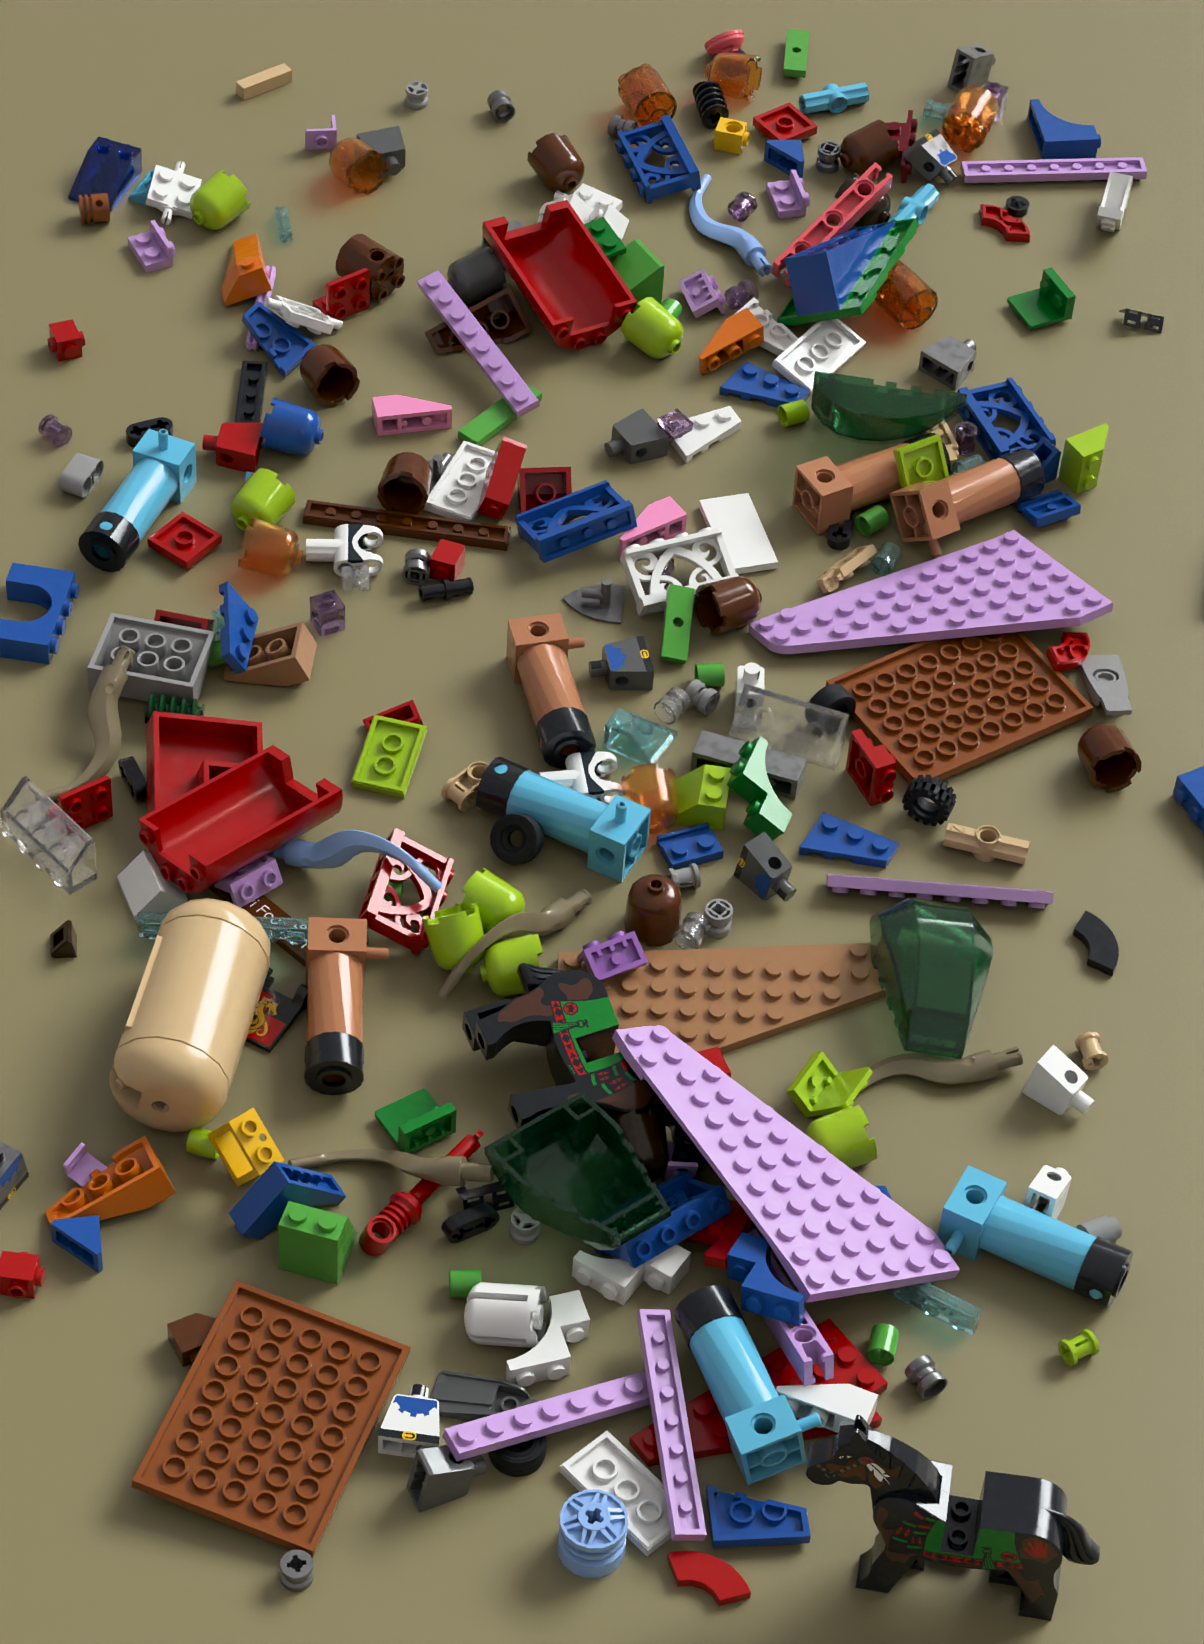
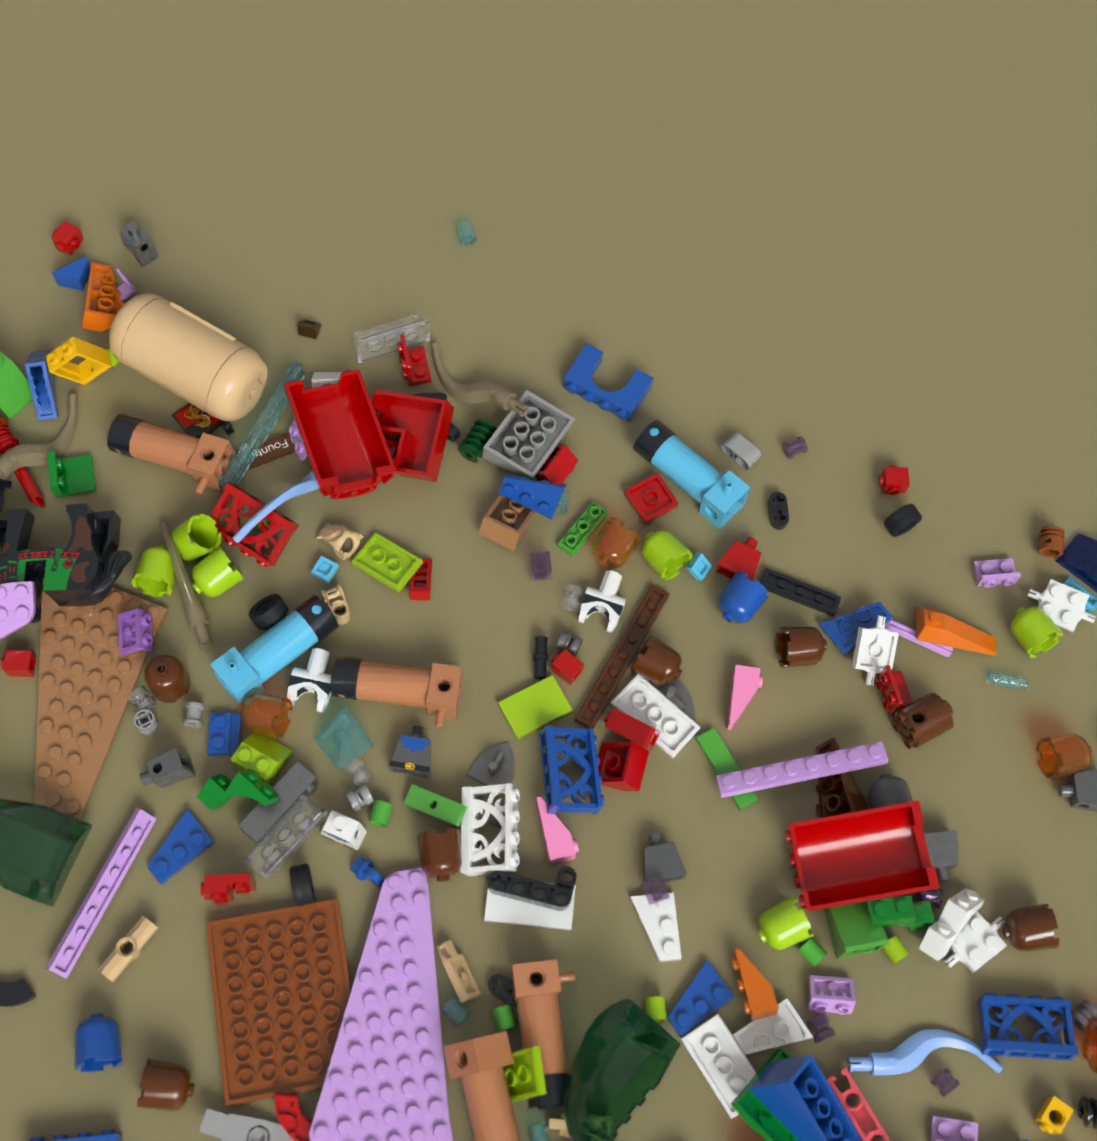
camera: 110 degrees right, 20 degrees up
(122, 320) = (902, 520): none -> black tyre
(258, 596) = (575, 536): none -> bright green tile
(379, 803) = (336, 537): none -> tan hair
(427, 813) = (325, 569): none -> medium azure plate
(509, 582) = (535, 707): none -> lime tile
(722, 502) = (531, 885): none -> black beam
(780, 674) = (365, 869): none -> blue piece
(933, 790) = (180, 918): black tyre -> none
(1102, 824) = (97, 1044): none -> blue cylinder

